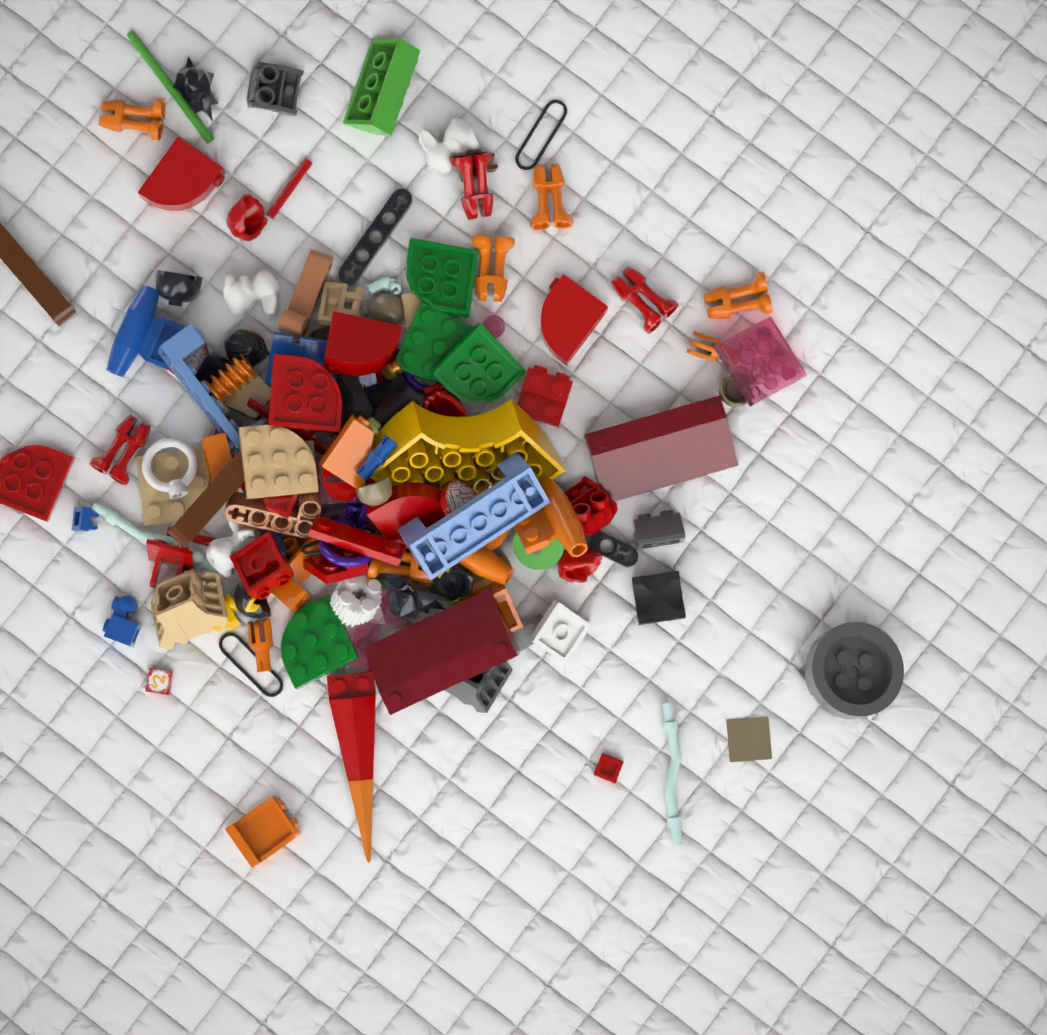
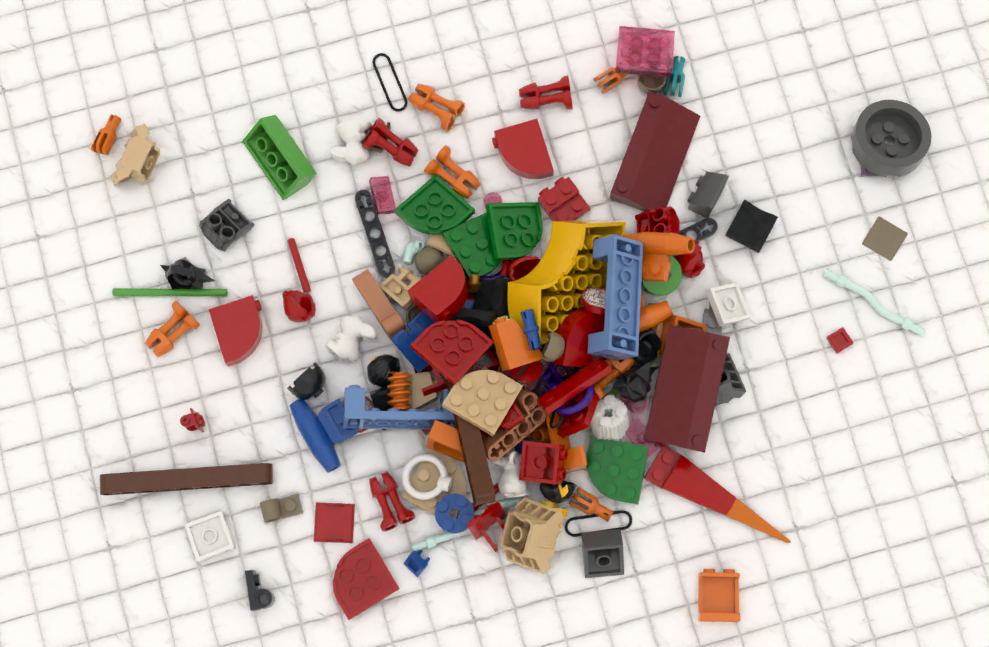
camera: 50 degrees left, 5 degrees down
(41, 352) = (281, 508): none -> dark tan plate
(60, 206) = (193, 421): none -> red hinge
(65, 413) = (334, 522): none -> red piece
(119, 626) = (510, 591): blue brick -> none
(152, 506) = (447, 522): none -> blue plate
(159, 681) = (564, 593): tile -> none
(223, 689) = (603, 553): none -> dark grey slope
(418, 215) = (382, 195): none -> clear pink plate
(724, 311) = (594, 18): orange piece -> none
(760, 410) = (677, 77): none -> teal arm

